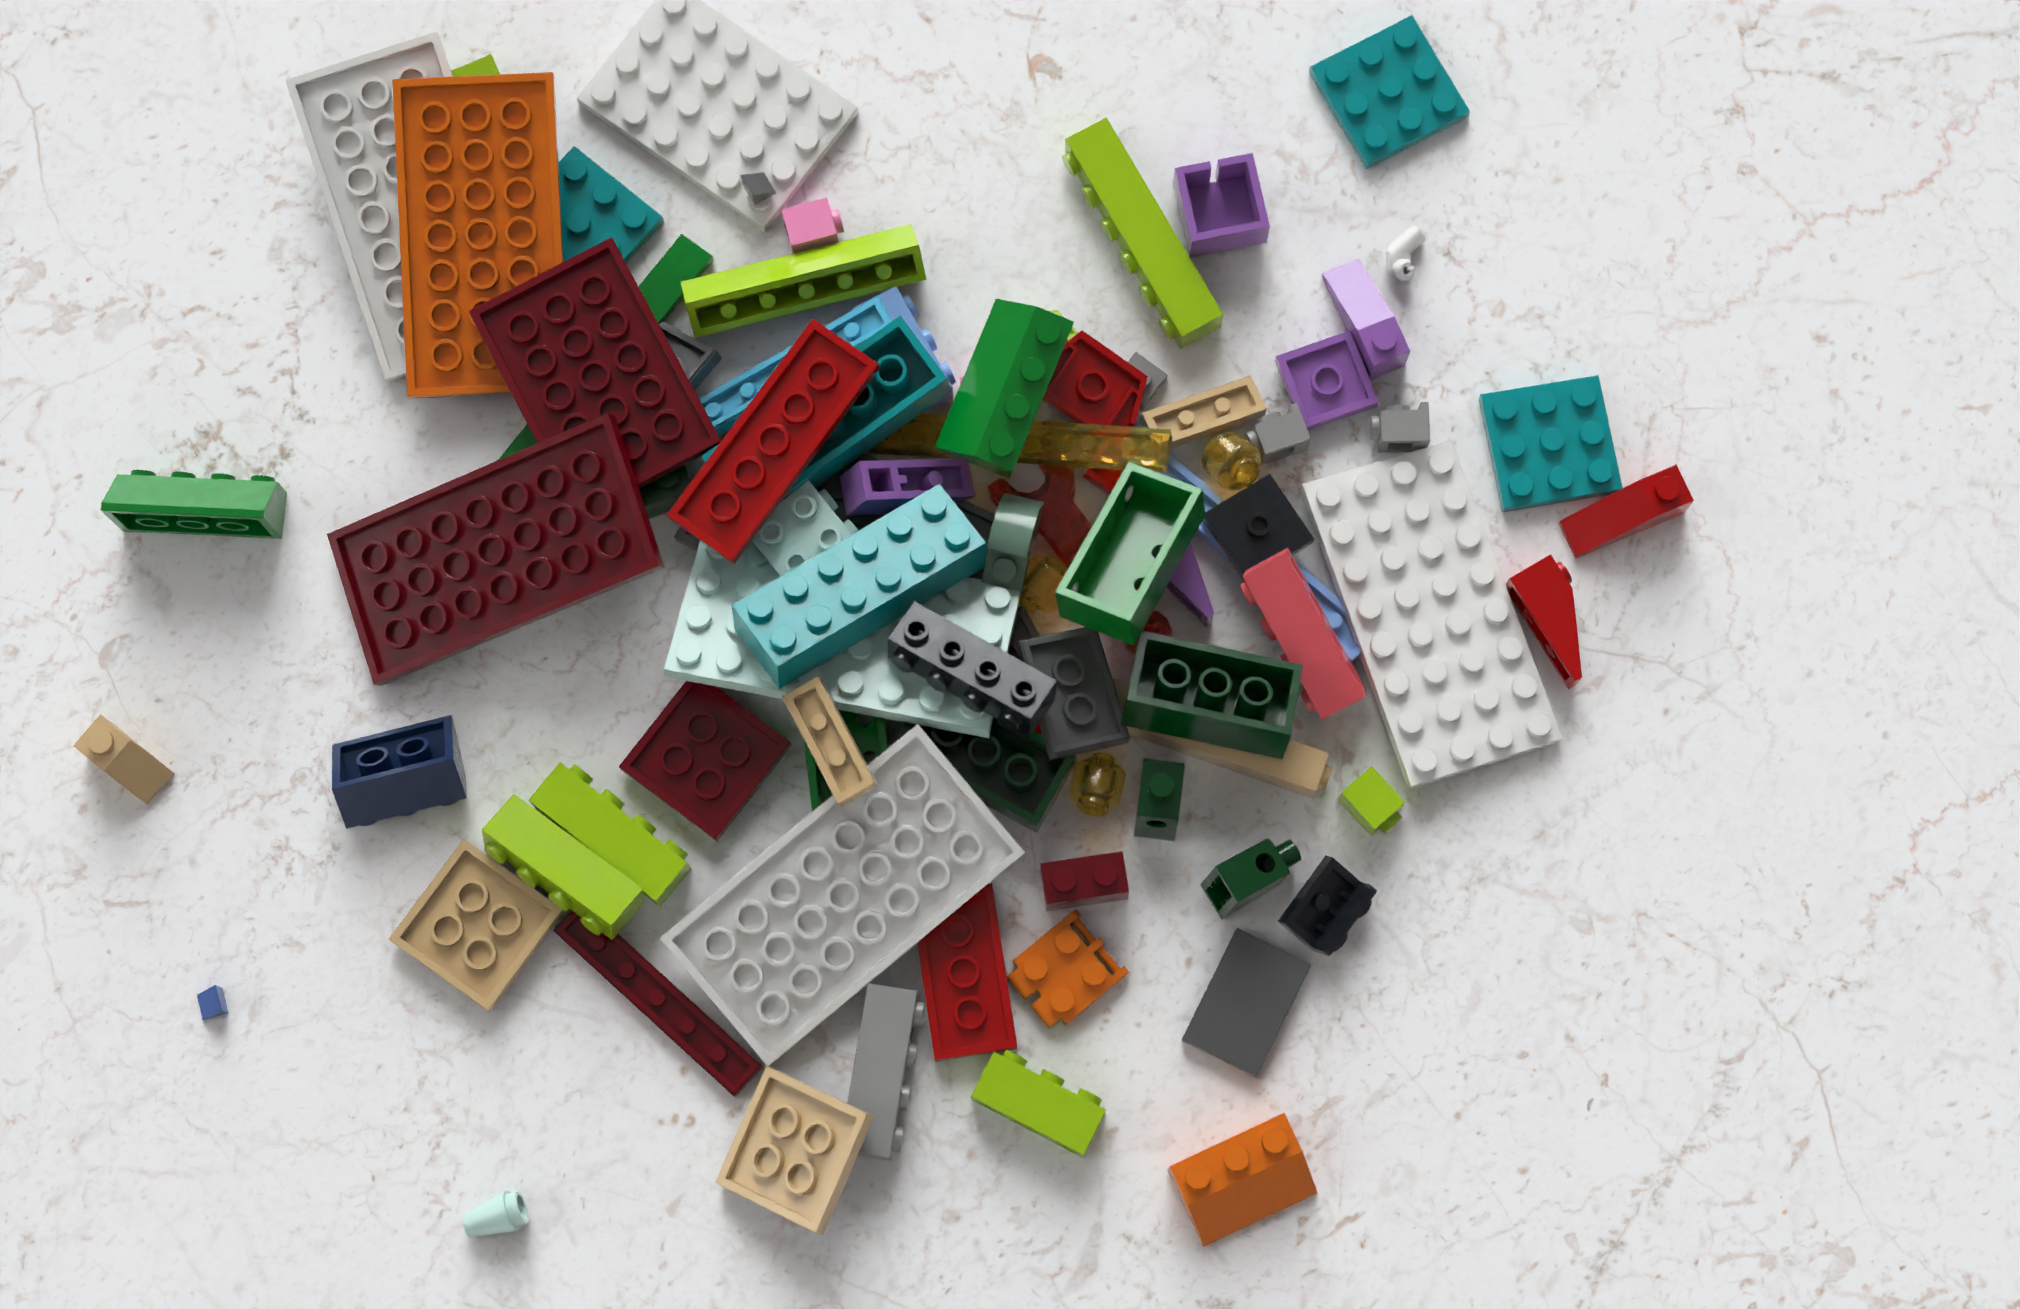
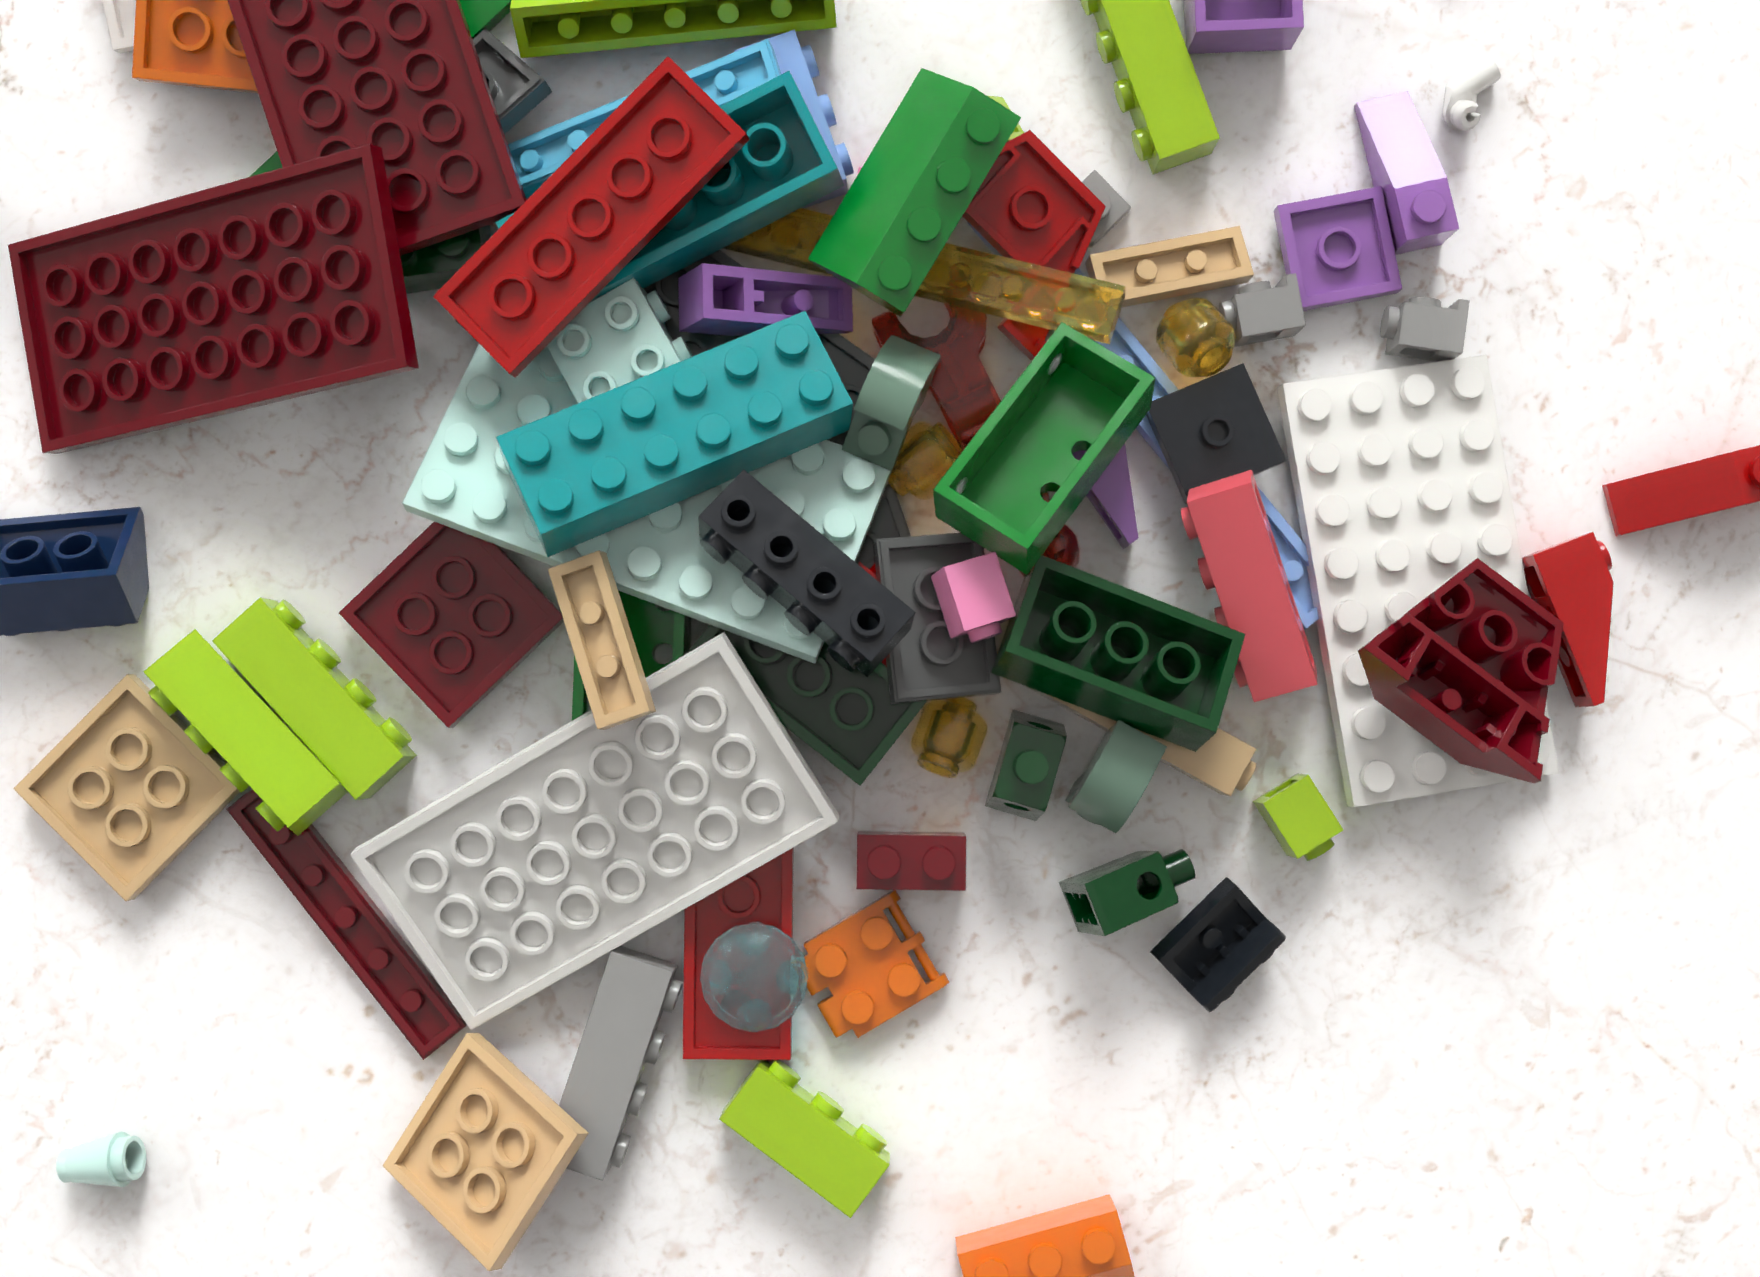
camera: 15 degrees right, 10 degrees up
(979, 986) = (754, 977): none -> clear light blue dish
(1097, 669) = (974, 597): none -> bright pink brick
(1226, 790) = (1116, 777): none -> sand green brick
(1246, 1002) = (1091, 1046): dark grey tile -> none
(1475, 667) = (1471, 671): none -> dark red wedge
(1550, 443) = (1613, 379): teal plate -> none

